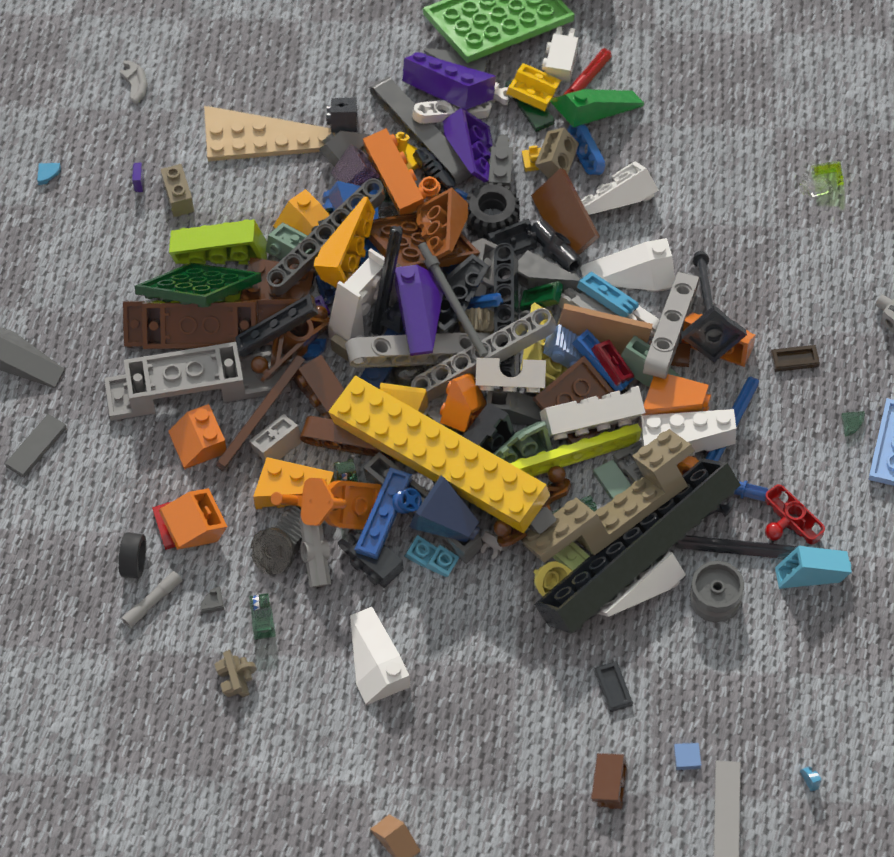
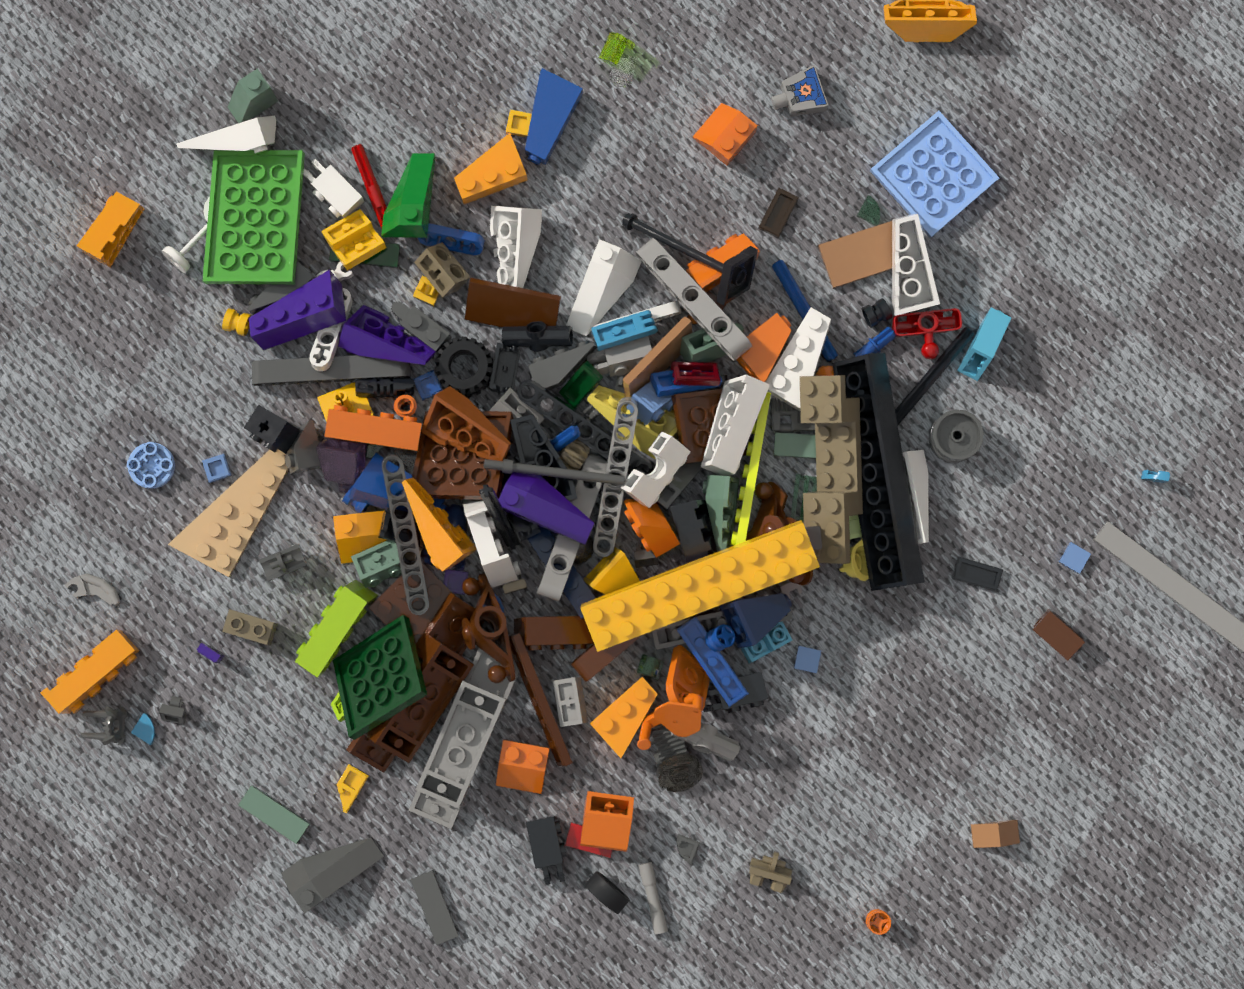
camera: 60 degrees left, 25 degrees up
(26, 143) = (117, 716): none -> dark grey piece
(37, 293) = (274, 814): none -> sand green tile
(66, 109) = (91, 673): none -> light orange wedge
(74, 180) = (173, 712): none -> dark grey tile
(96, 331) = (350, 786): none -> yellow tile
(141, 493) = (546, 845): none -> black hinge
(245, 182) = (283, 562): none -> dark grey hips
(249, 780) = (881, 923): none -> orange wheel
(258, 63) = (150, 465): none -> light blue tile
(262, 616) = (730, 817): clear green leg -> none
(276, 325) = (480, 641): black tile -> none
(287, 105) = (216, 468): none -> medium blue tile
(376, 660) = (833, 750): white wedge -> none
(408, 47) = (235, 321): none -> yellow wheel
(440, 597) = (807, 659): none -> medium blue tile
(660, 143) = (491, 172): none -> light orange wedge
(714, 142) = (518, 123): none -> yellow plate
(737, 157) = (551, 112): none -> blue slope
(772, 473) = (876, 313): none -> black wheel
(818, 441) = (858, 255): none -> medium nougat tile
(826, 284) = (725, 133): none -> orange slope
(830, 469) = (911, 270): none -> white wedge

